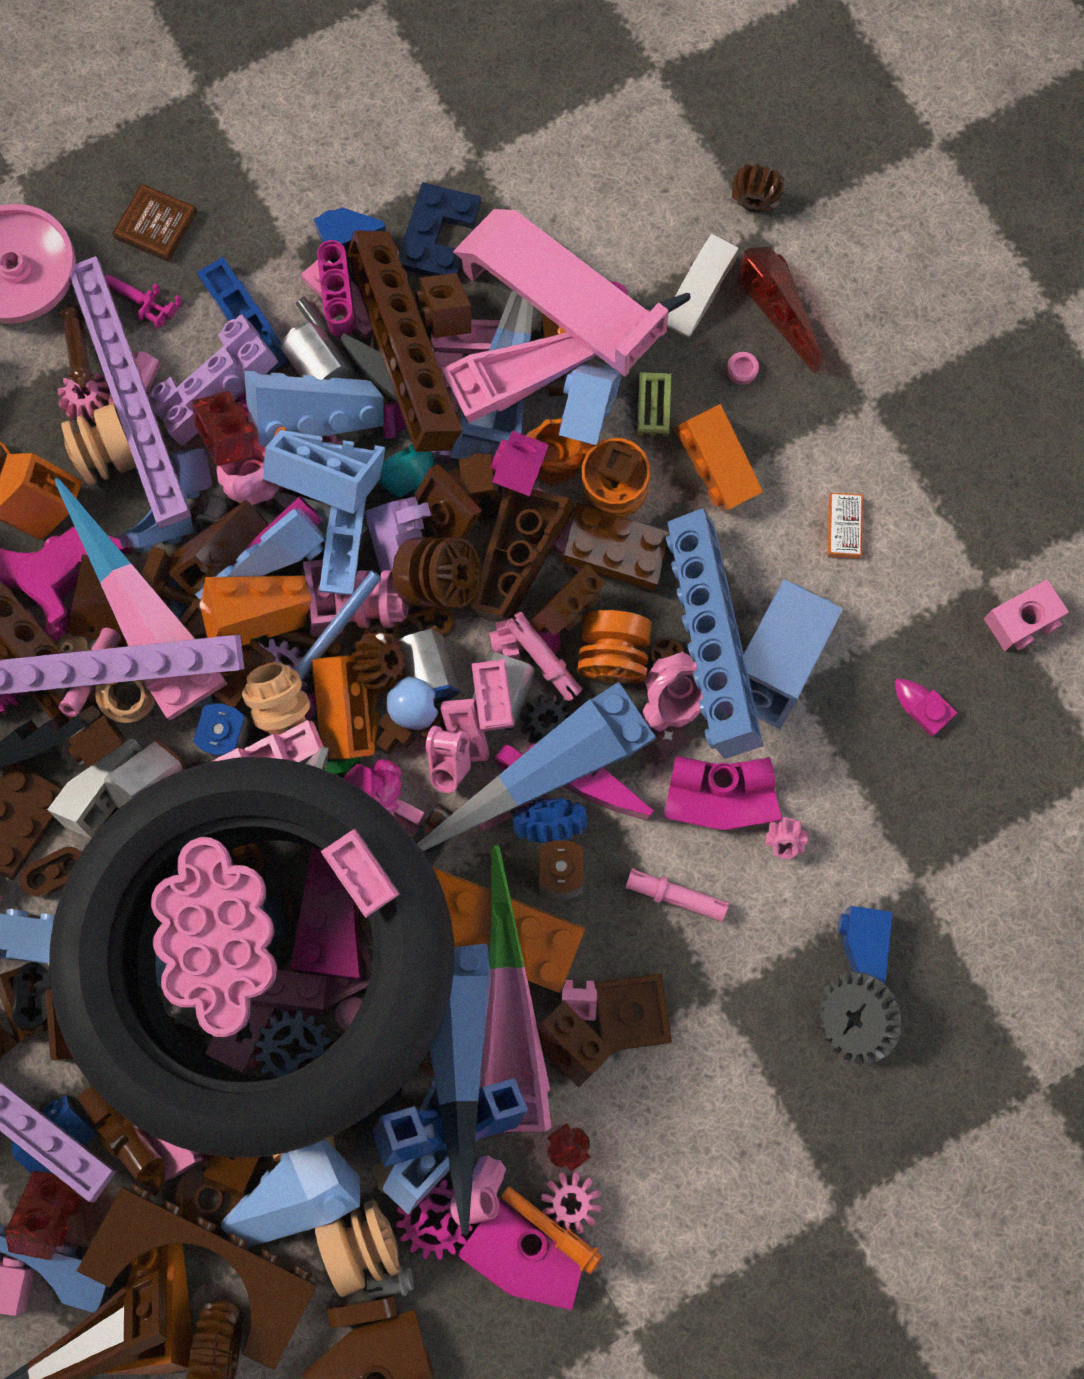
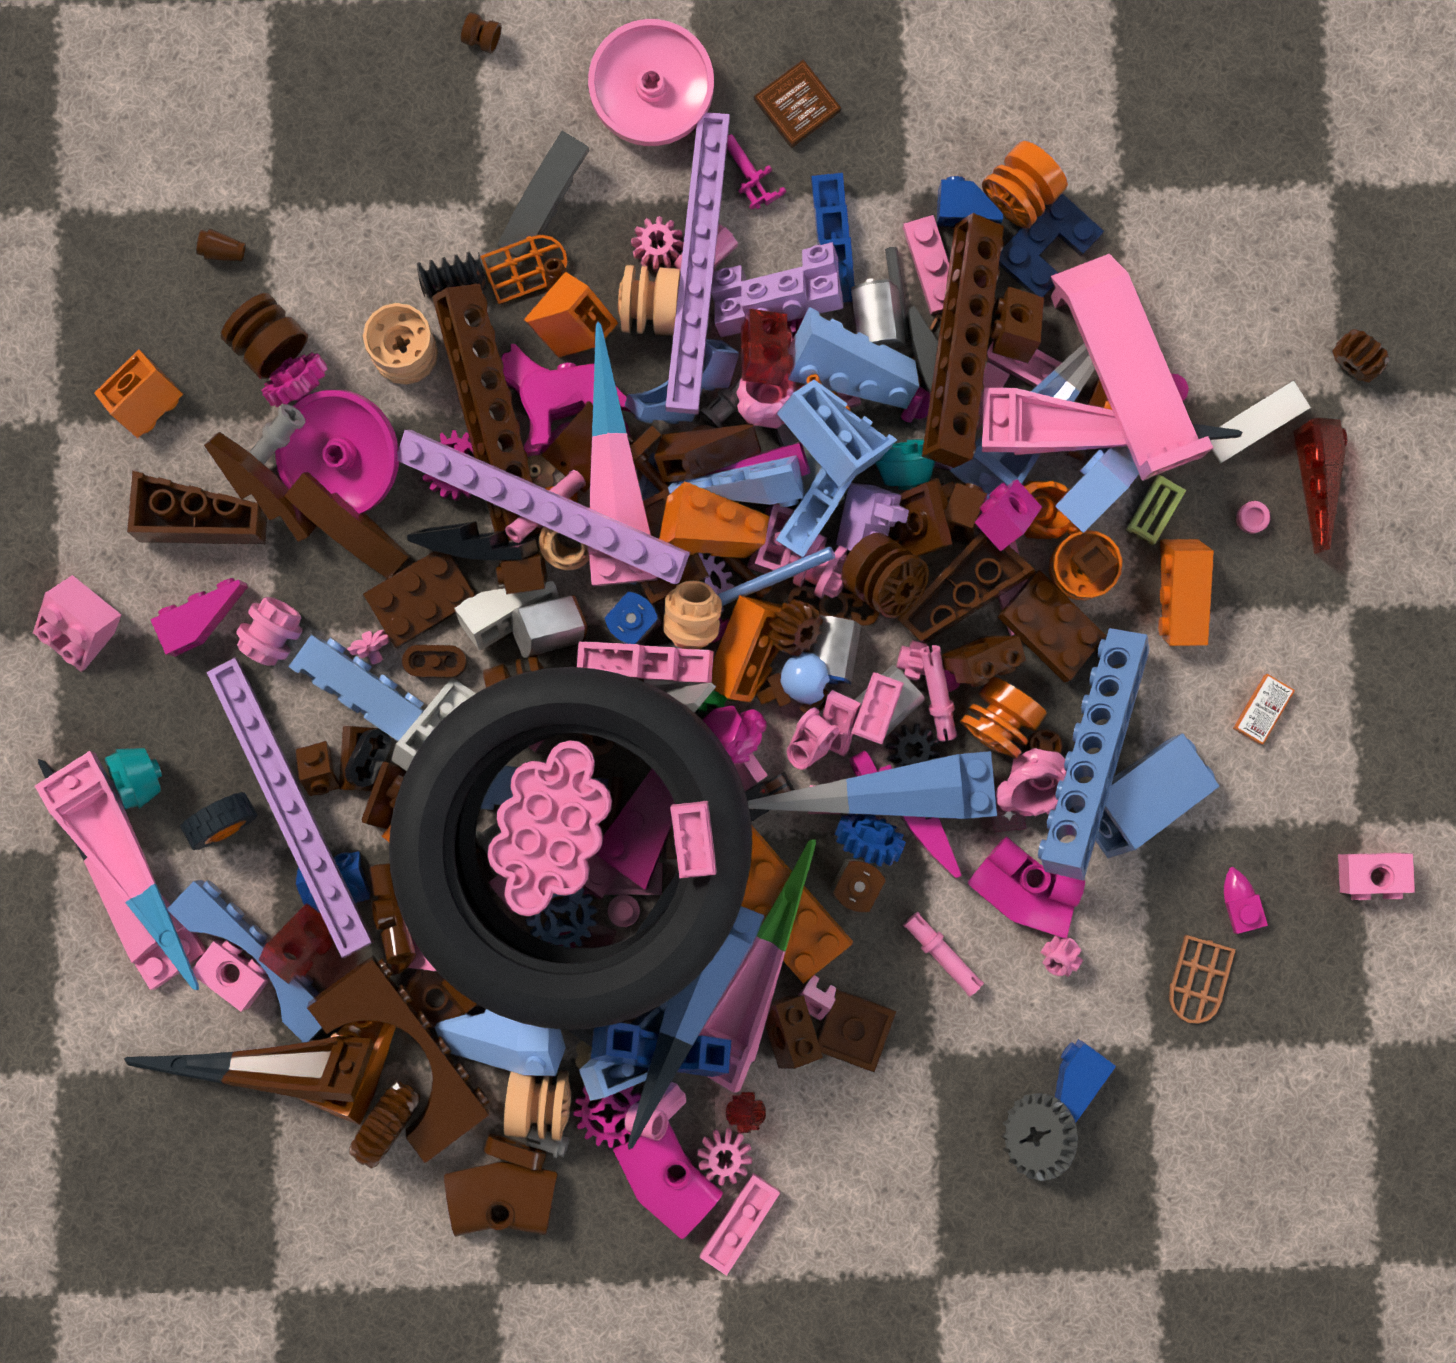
camera: 25 degrees right, 10 degrees up
(76, 345) = (672, 193): reddish brown wheel -> none
(331, 276) = (937, 247): dark pink beam -> none
(389, 187) = (1025, 184): none -> orange wheel
(566, 1241) = (706, 1187): orange pin -> none
(620, 1263) = (739, 1224): none -> bright pink plate
(932, 784) = (1194, 968): none -> nougat window

